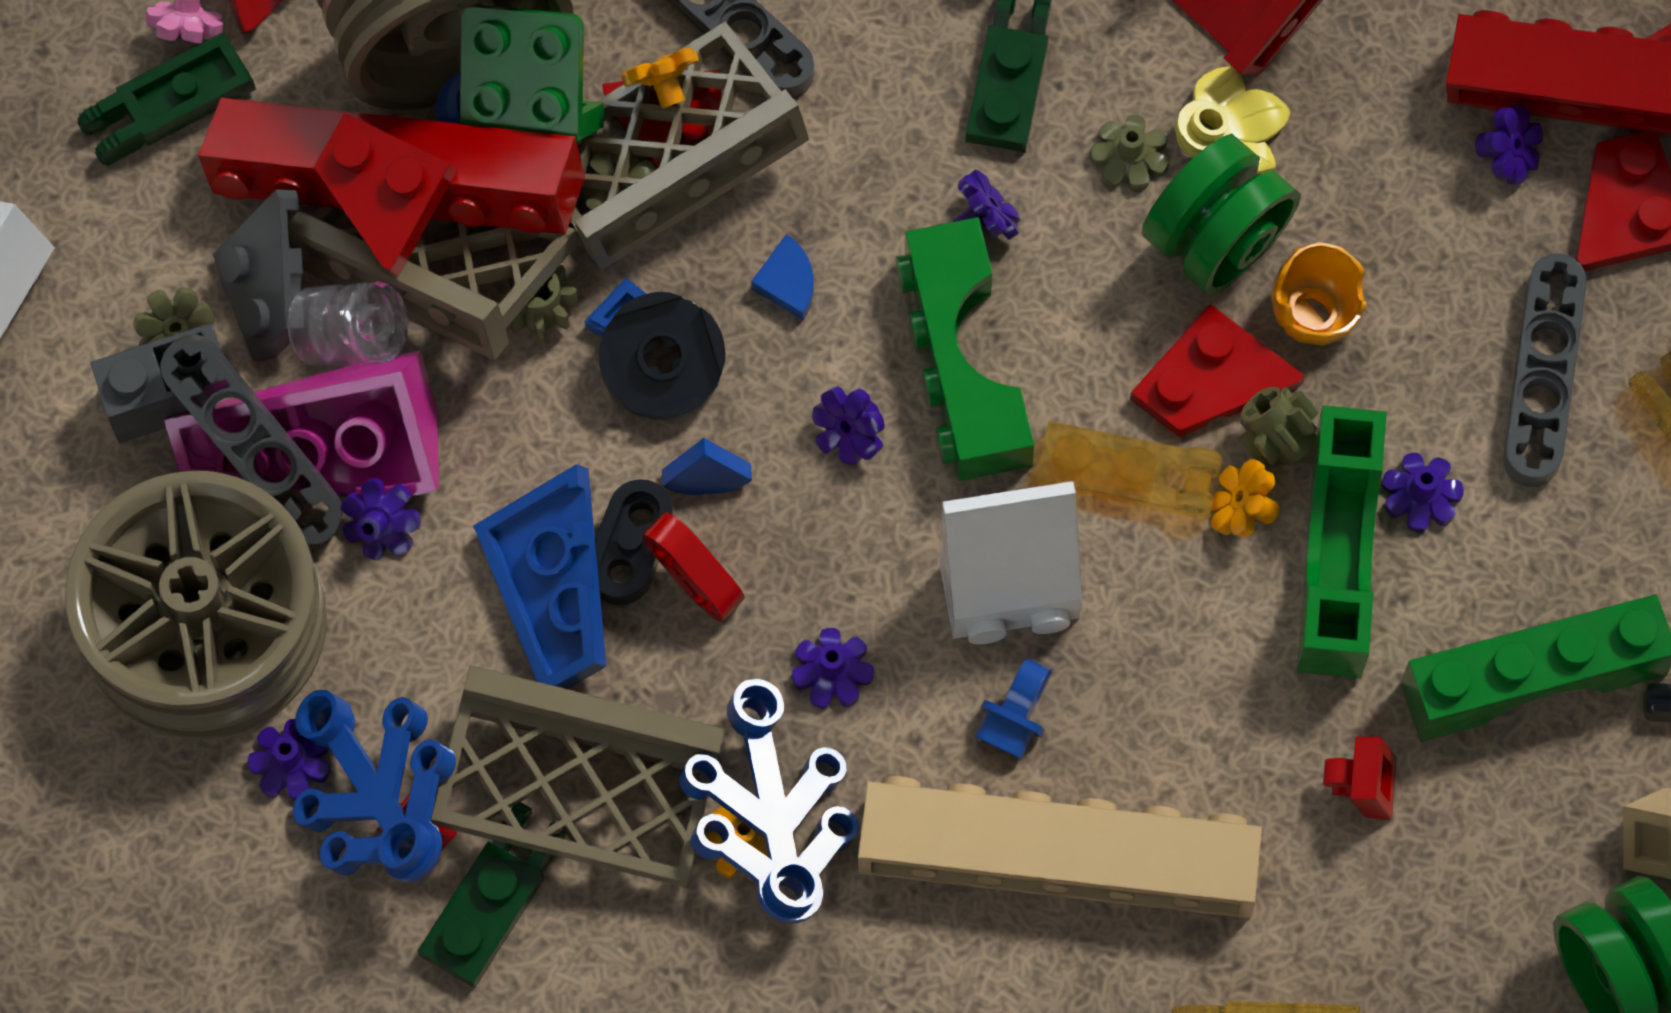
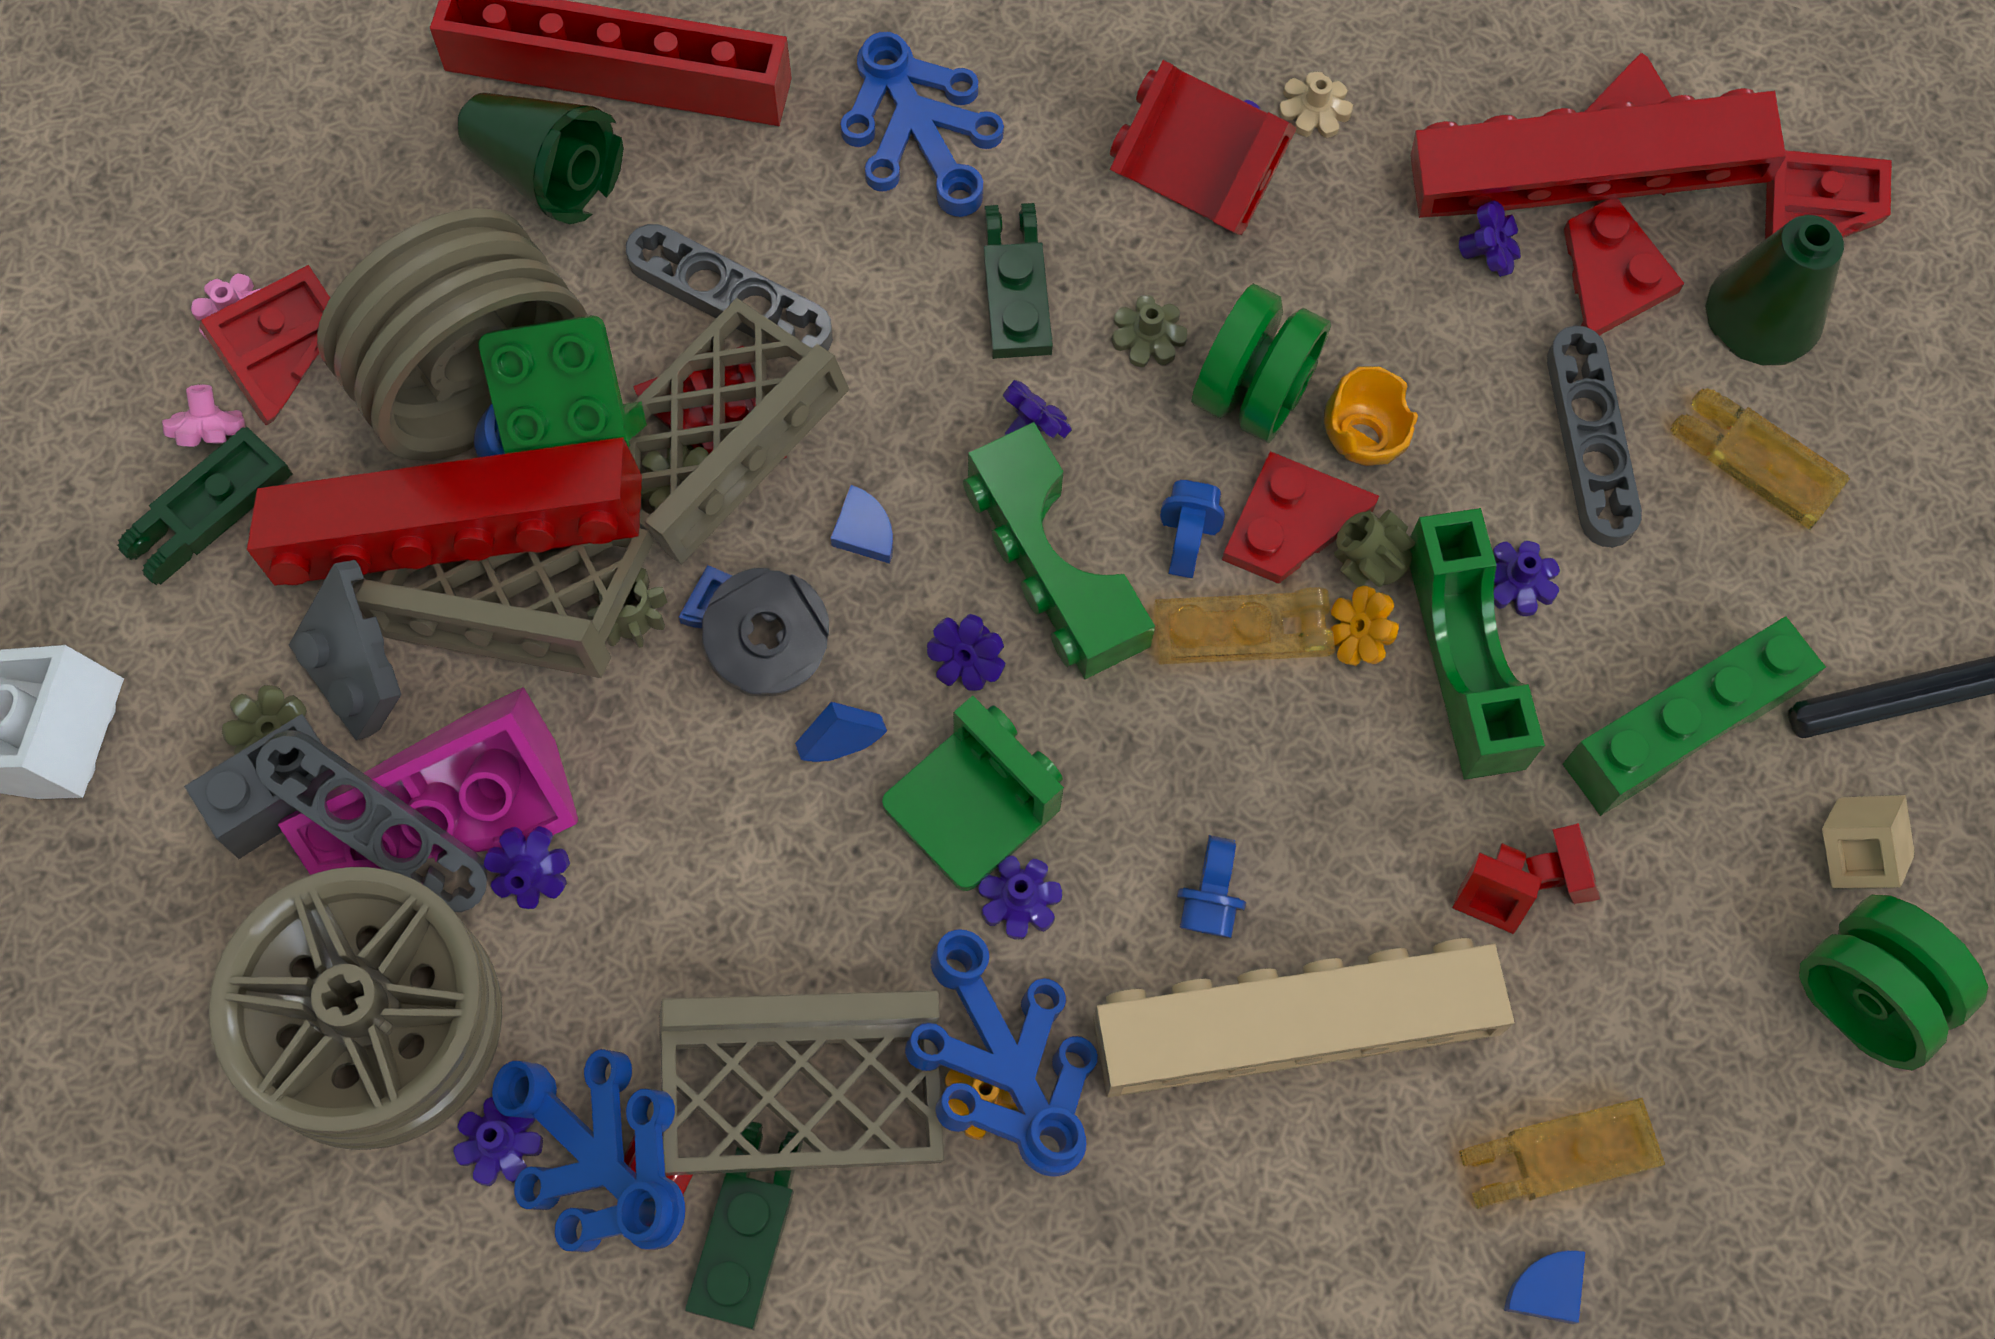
camera: 20 degrees left, 0 degrees up
(347, 324) = (443, 680): clear wheel -> none
(383, 187) = (443, 534): red wing -> none
(549, 576) = (715, 883): blue wing -> none
(622, 543) = (783, 825): black plate -> none
(663, 75) = (692, 359): light orange plant -> none
(693, 566) = (856, 832): red beam -> none
(816, 563) = (975, 796): none -> green bracket
(1011, 562) = (1173, 746): white slope -> none
(1111, 345) = (1192, 511): none -> blue piece
(1229, 108) = (1225, 273): light yellow plate -> none
(1289, 780) = (1498, 889): none -> red tile

